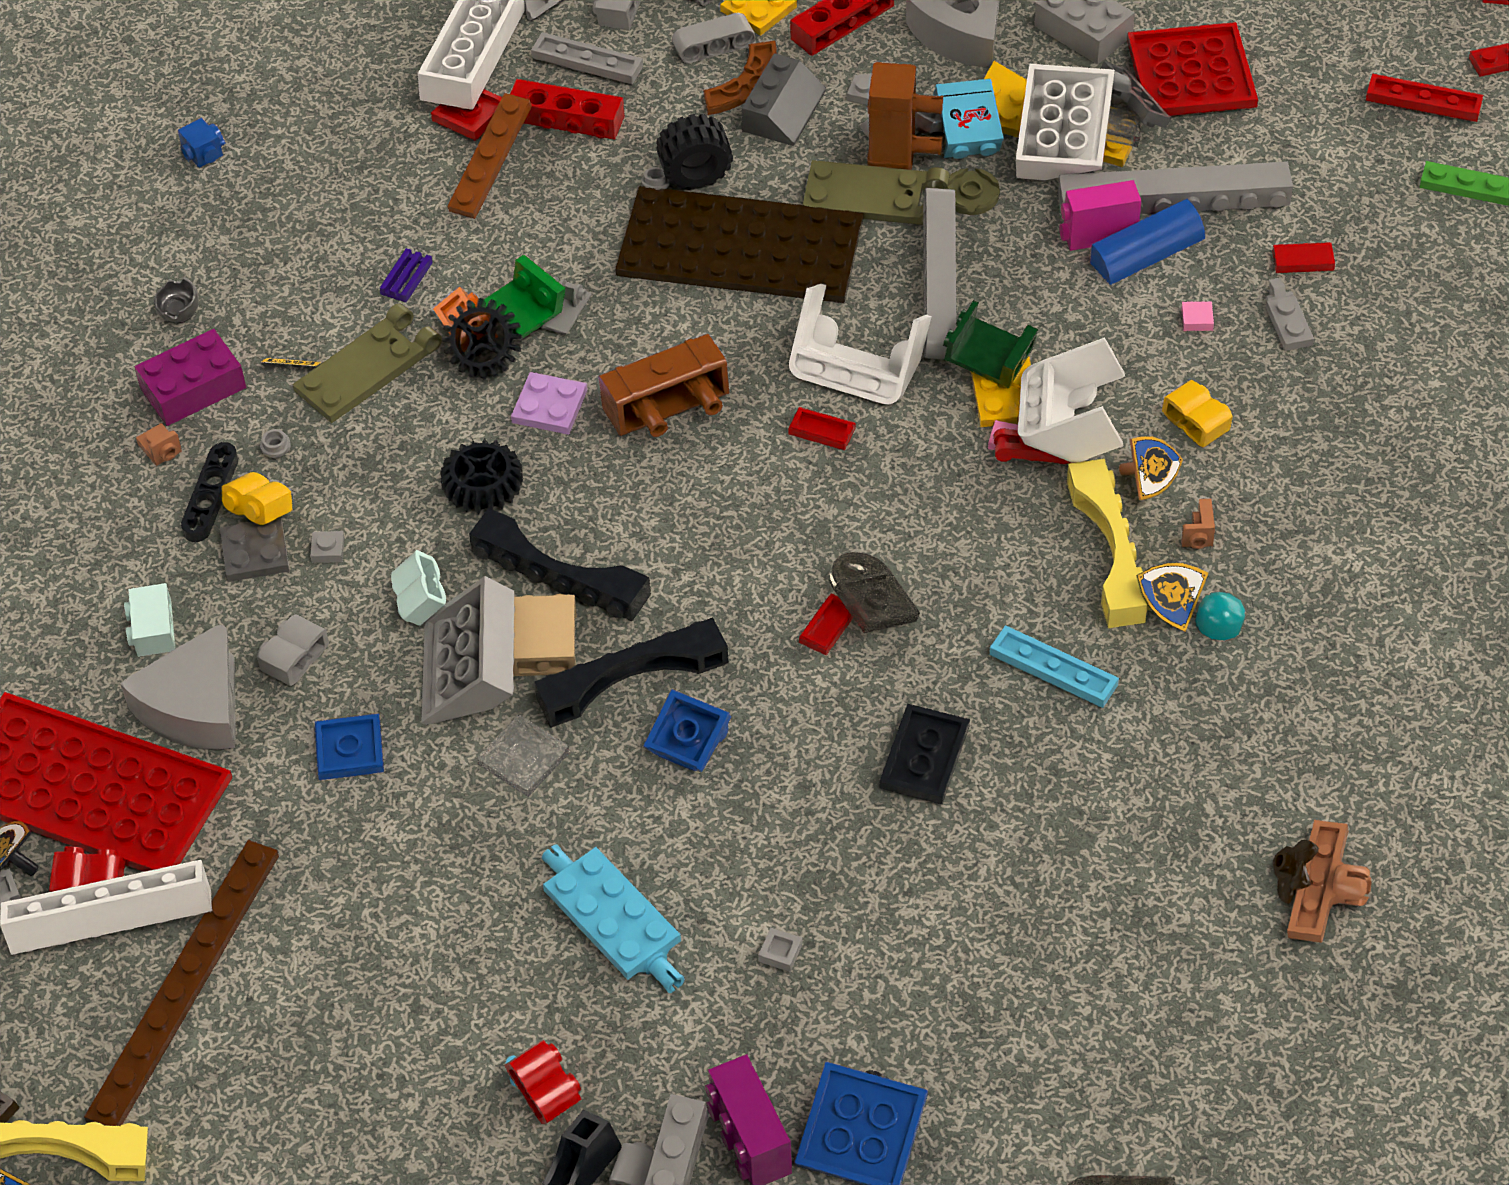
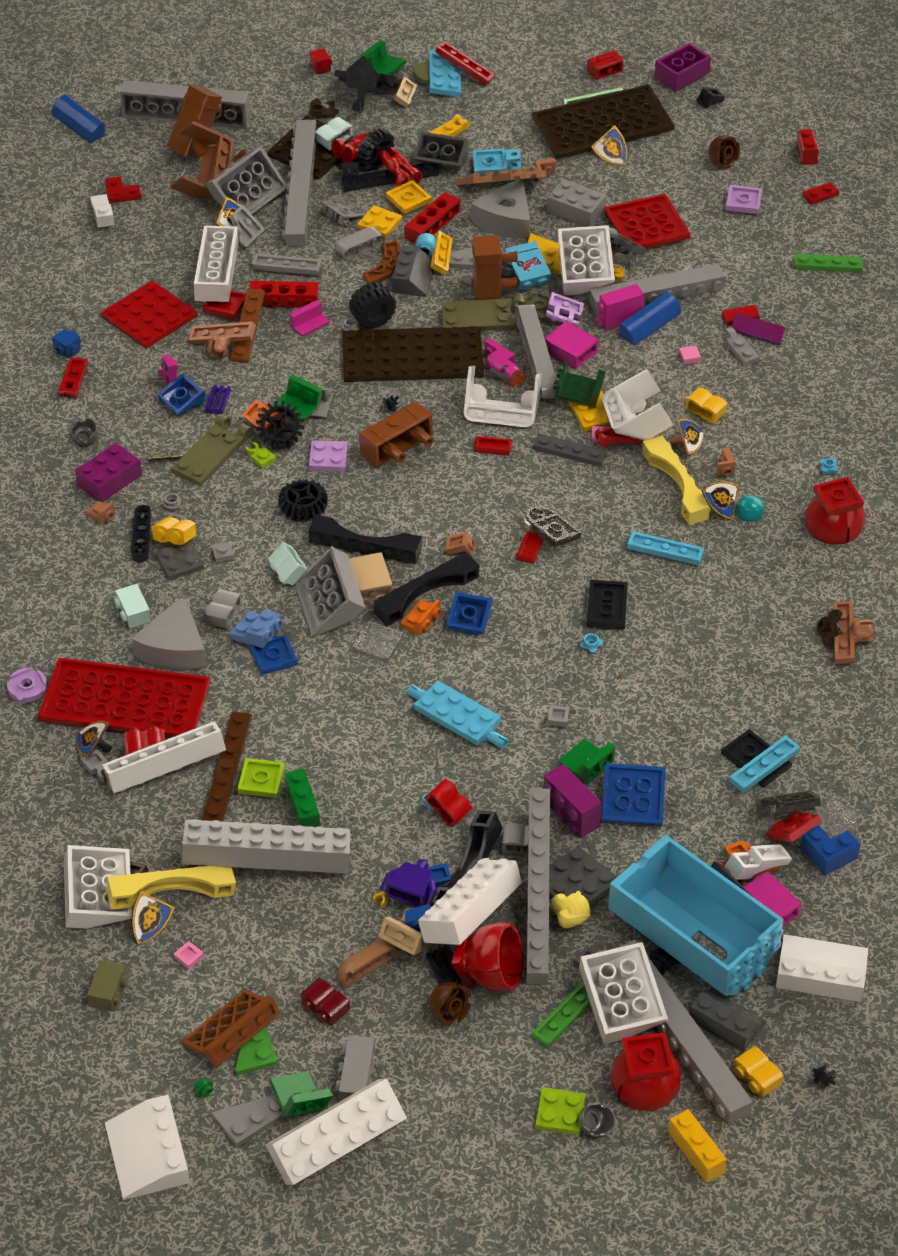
camera: 15 degrees left, 5 degrees down
(193, 202) = (73, 377): none -> red plate
(213, 1108) = (266, 846): none -> light grey brick
(255, 972) = (261, 778): none -> lime plate
(306, 1029) = (302, 798): none -> green brick
(334, 695) = (257, 628): none -> medium blue plate
(339, 212) = (169, 369): none -> dark pink wing
(346, 111) = (149, 314): none -> red plate
(349, 259) = (182, 395): none -> blue slope
(439, 167) = (221, 335): none -> nougat plate
(442, 387) = (260, 457): none -> lime plate
(591, 157) = (308, 318): none -> dark pink panel
(609, 721) = (421, 616): none -> orange bracket
(679, 324) = (392, 401): none -> black wheel
(712, 598) = (459, 543): none -> nougat bracket
(804, 1042) = (587, 760): none -> green bracket
(818, 56) = (426, 243): none -> medium azure head
(839, 74) = (441, 253): none -> yellow plate
(879, 285) = (502, 363): none -> dark pink plate
(880, 813) = (591, 642): none -> medium azure plate
(946, 457) = (569, 450): none -> dark grey plate
(1001, 269) = (571, 345): none -> dark pink brick
(1011, 198) = (565, 306): none -> lavender plate
(1099, 1095) = (748, 747): none -> black tile
(1105, 1113) = (764, 764): none -> medium azure plate
(1325, 287) = (758, 328): none -> magenta tile
(1362, 649) = (835, 511): none -> red plate
(1366, 50) = (744, 199): none -> lavender plate
(1376, 565) = (829, 465): none -> medium azure plate
(1424, 97) = (784, 220): red plate -> none

